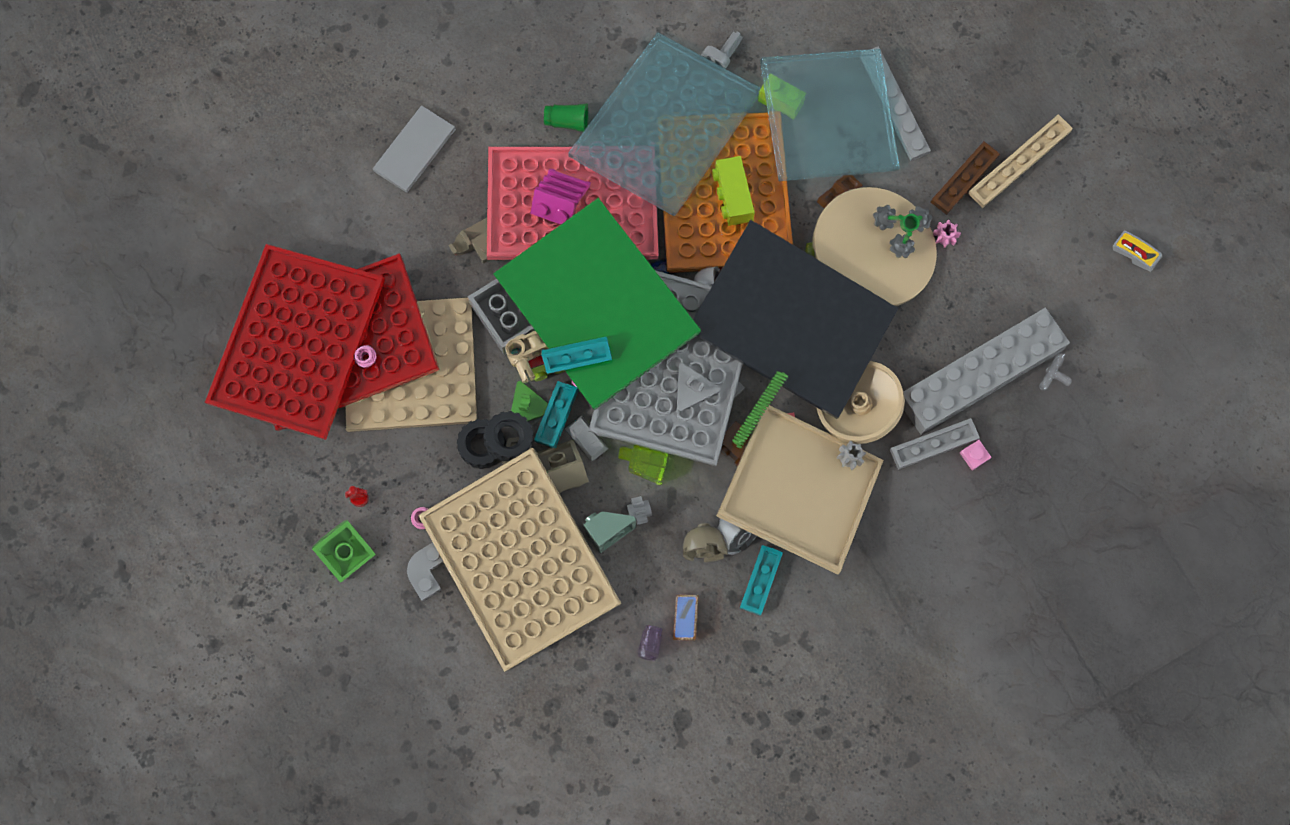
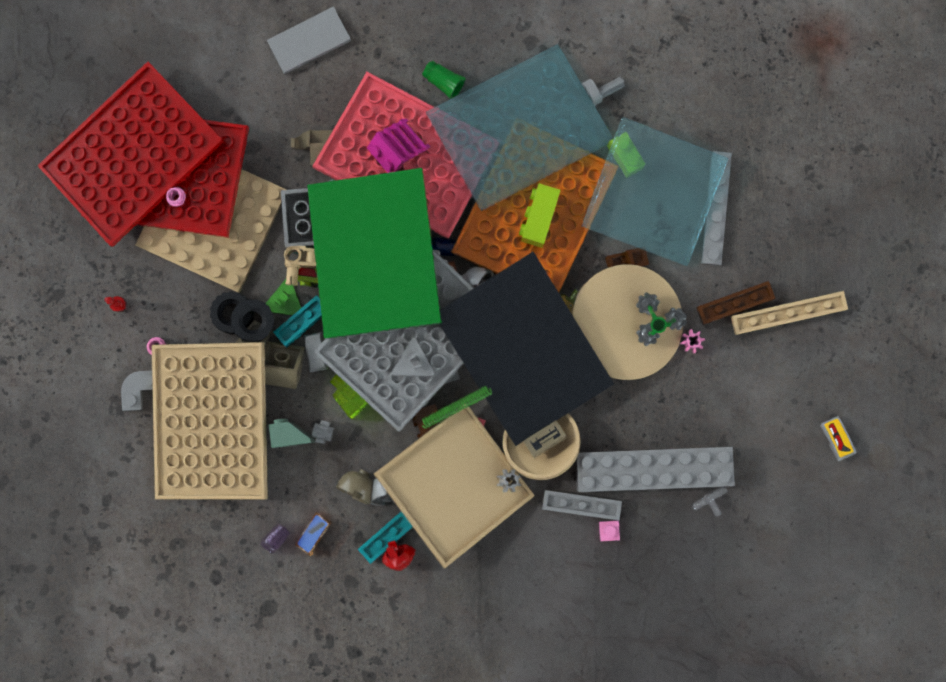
camera: 30 degrees right, 10 degrees up
(343, 550) = (82, 340): bright green slope -> none
(576, 355) = (332, 289): teal plate -> none
(784, 592) = (397, 556): none -> red piece
(863, 395) = (545, 439): none -> dark tan tile

